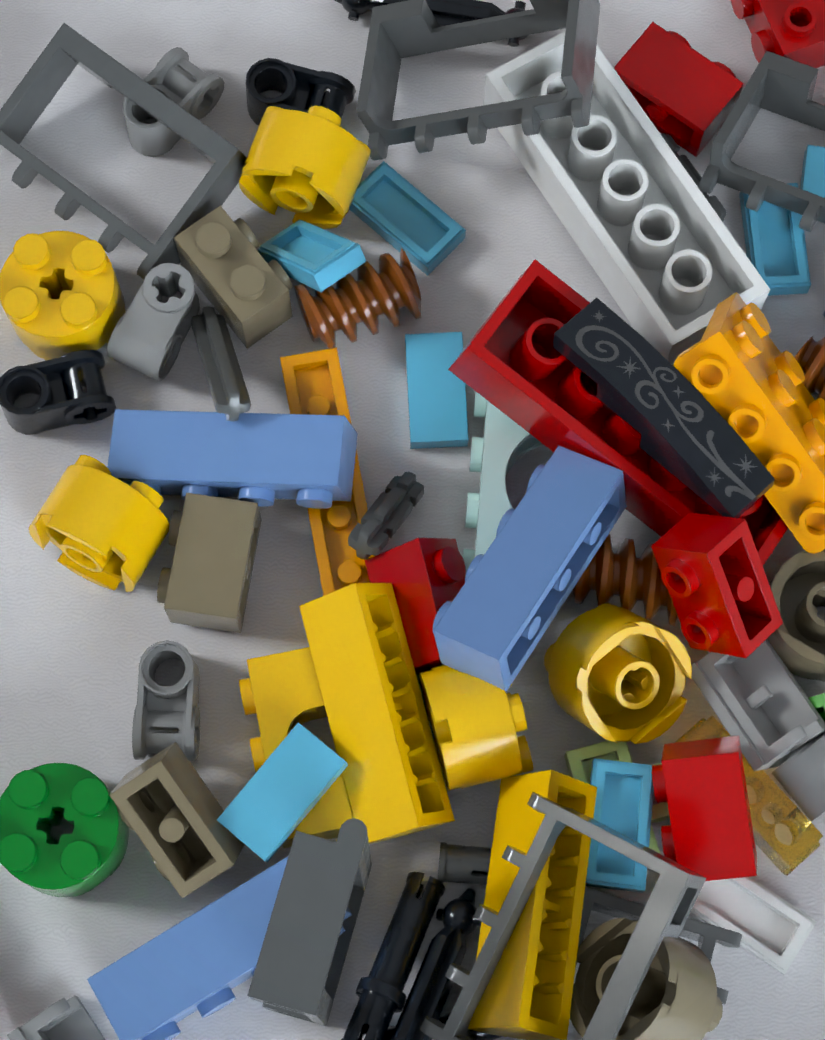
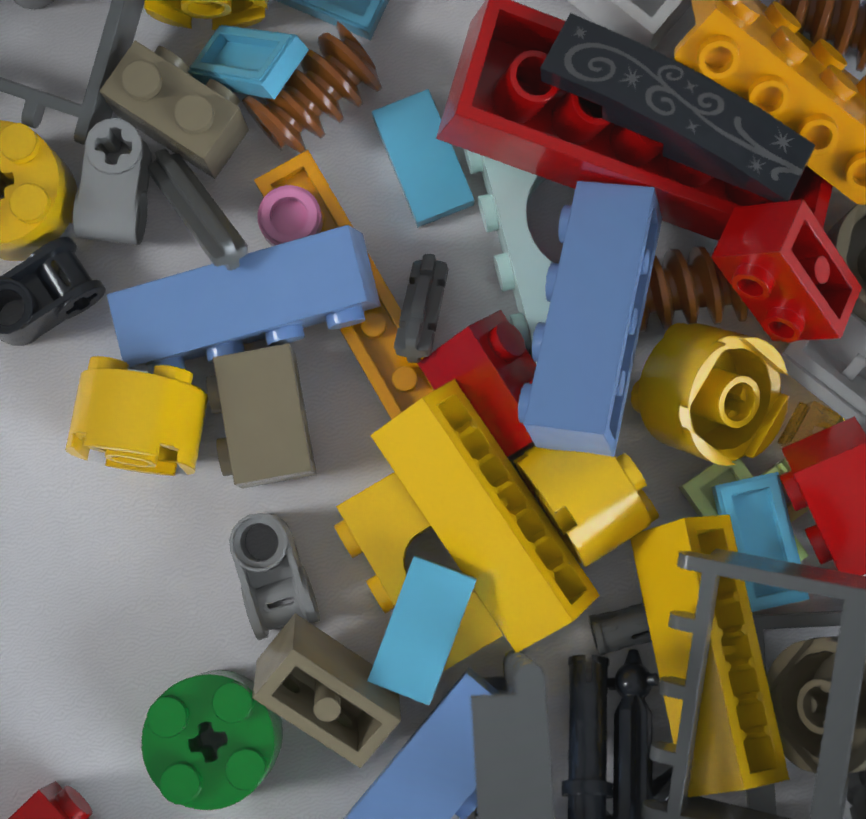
camera: 15 degrees left, 10 degrees up
(298, 393) = (289, 215): none -> bright pink tile

